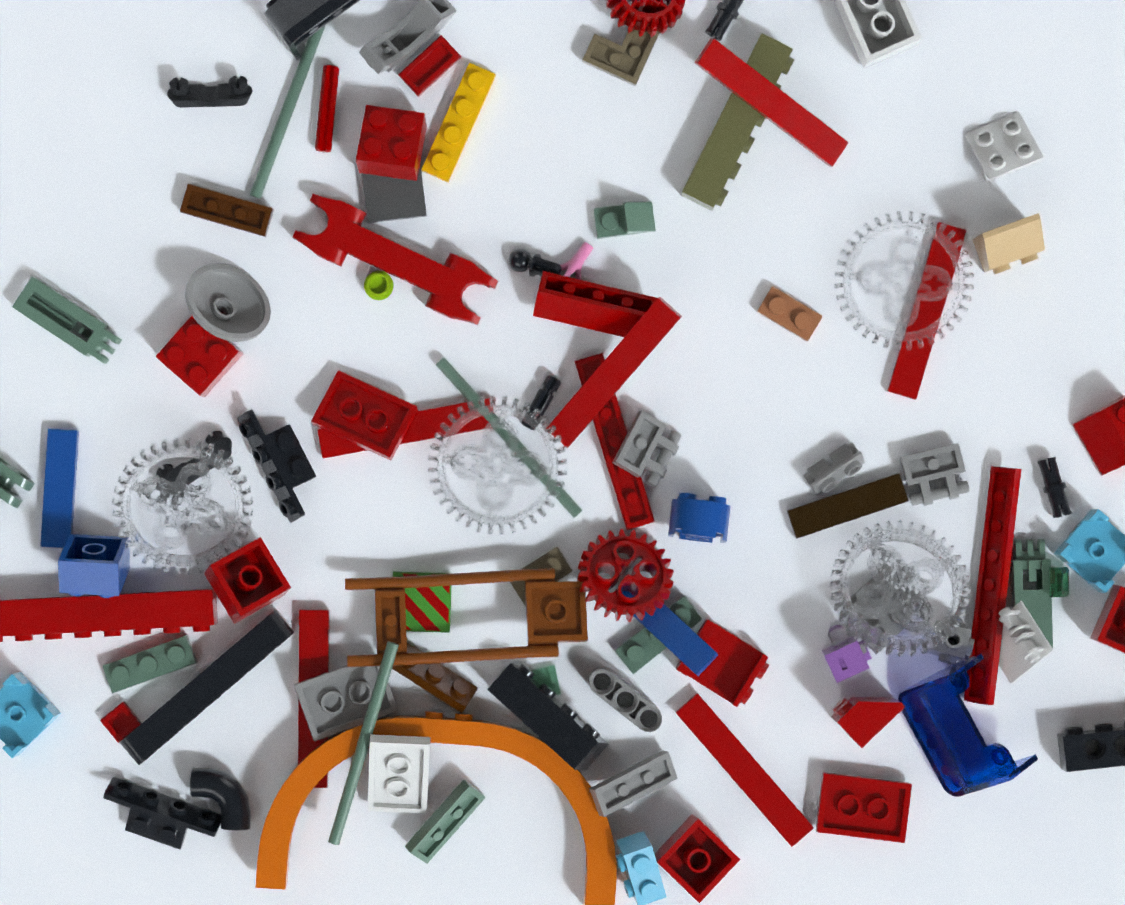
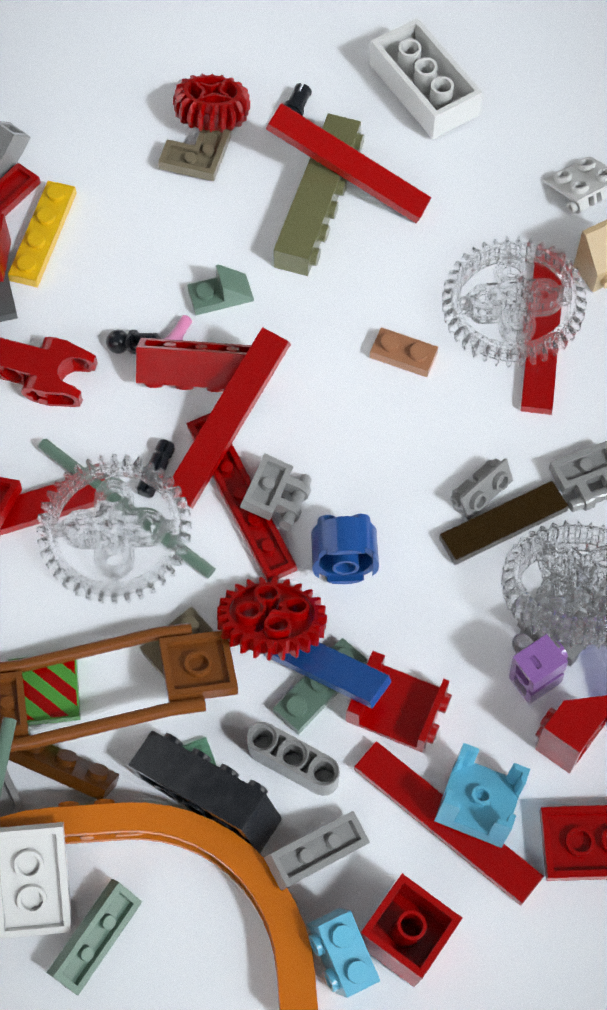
camera: 10 degrees left, 25 degrees down
(775, 759) = (481, 799): none -> medium azure panel

